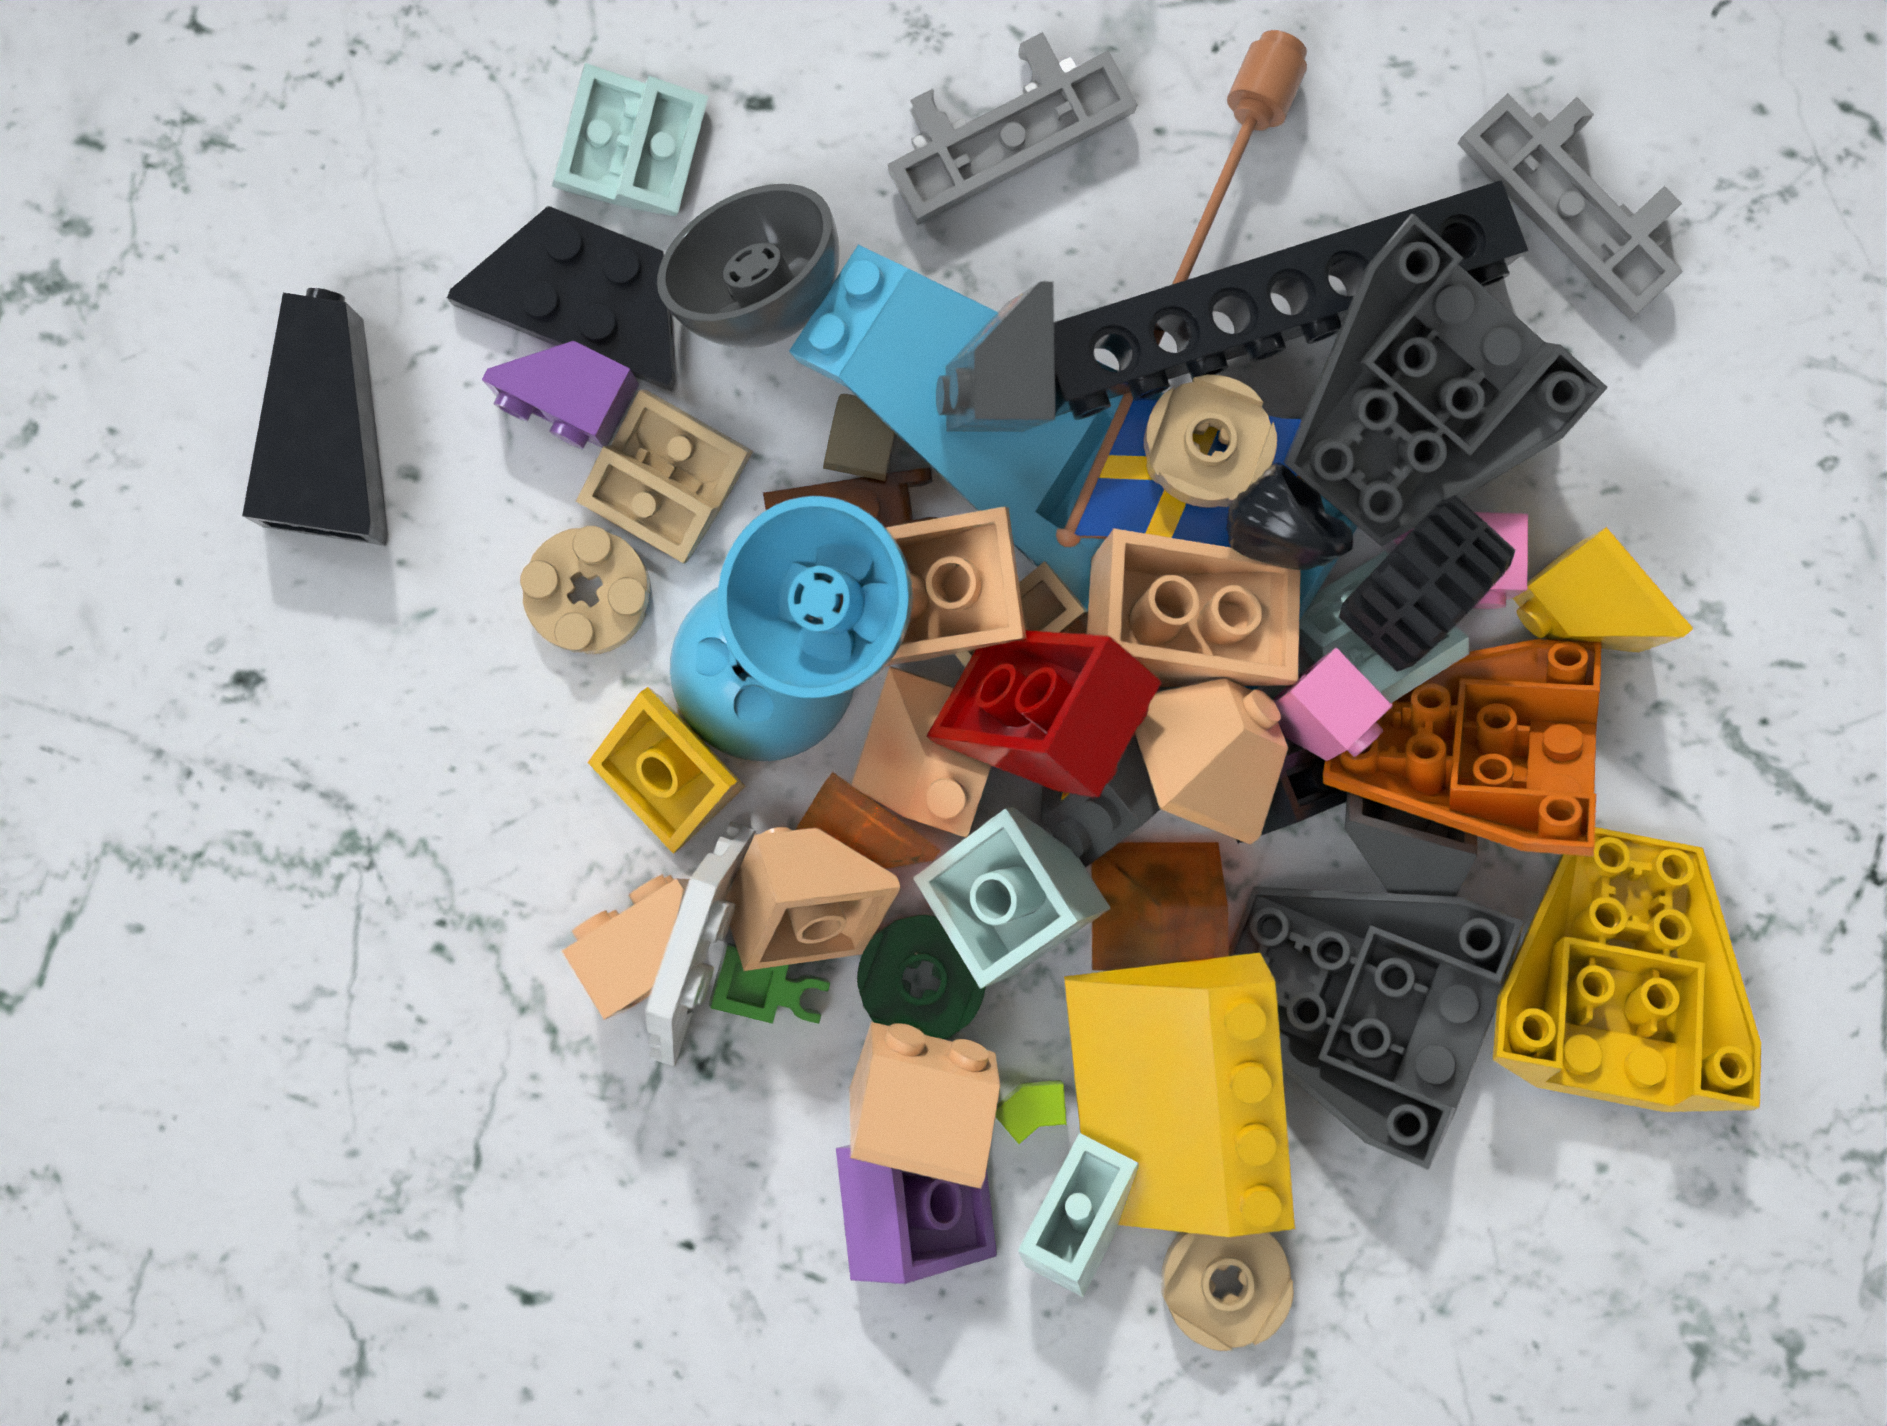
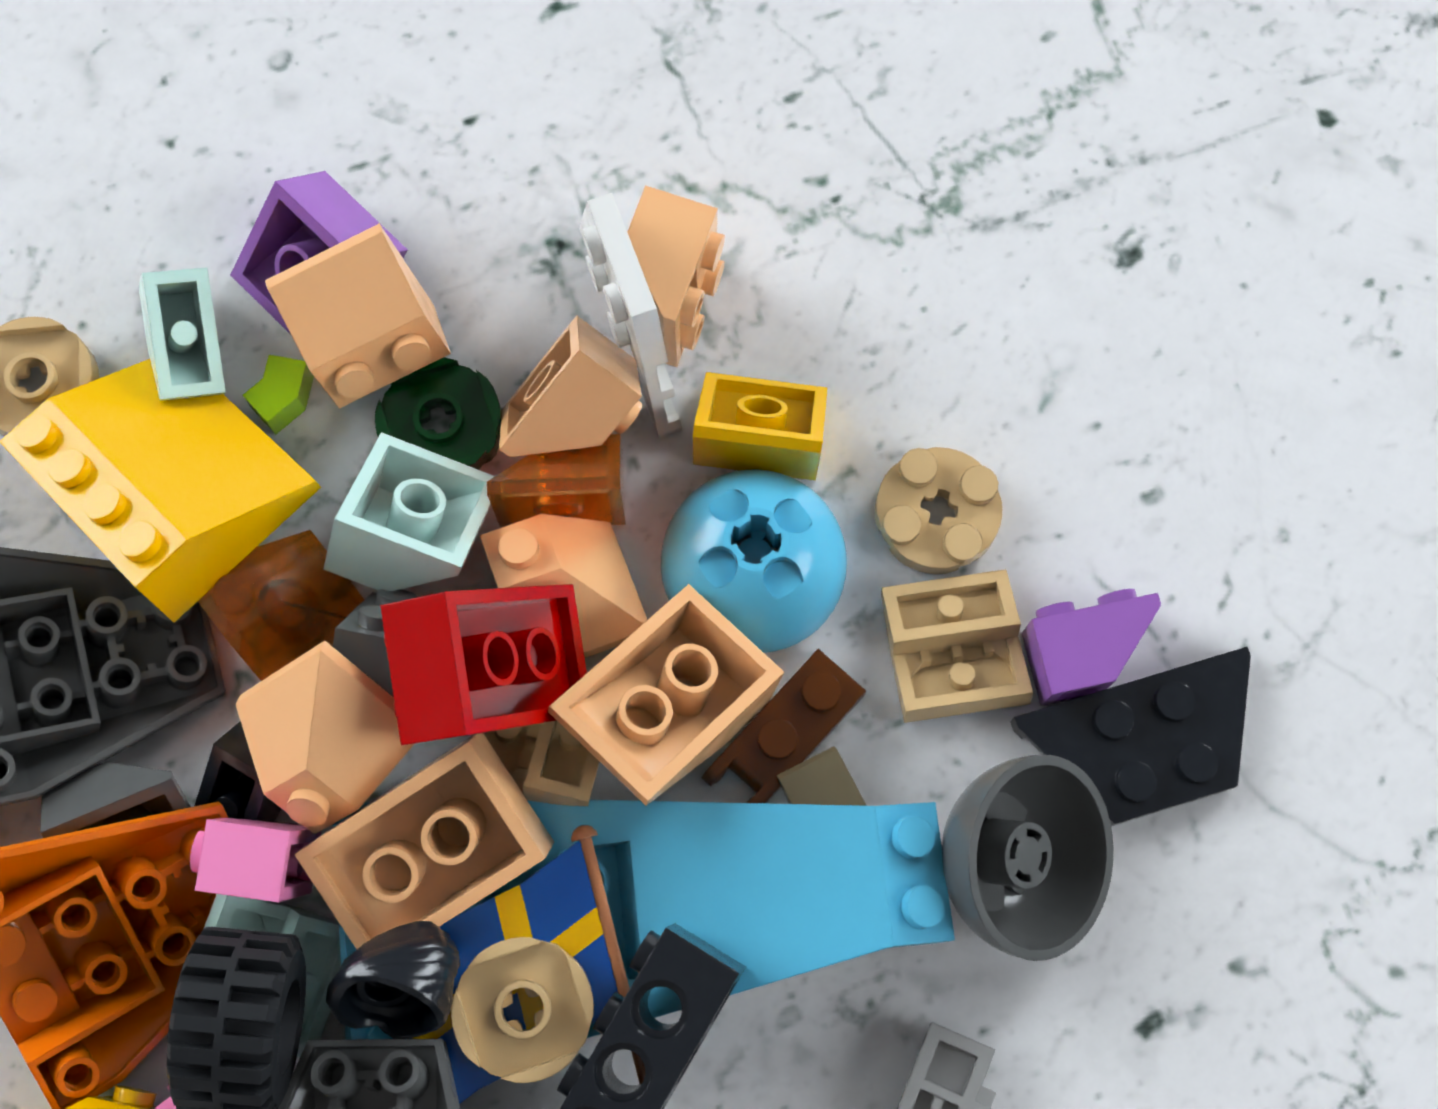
camera: 140 degrees right, 10 degrees down
(317, 428) = (1248, 468): black slope -> none
(630, 141) = (1223, 899): light aqua slope -> none
(760, 991) = (551, 317): bright green plate -> none
(783, 608) = (751, 574): medium azure piece -> none
(1005, 370) = (739, 911): dark grey slope -> none

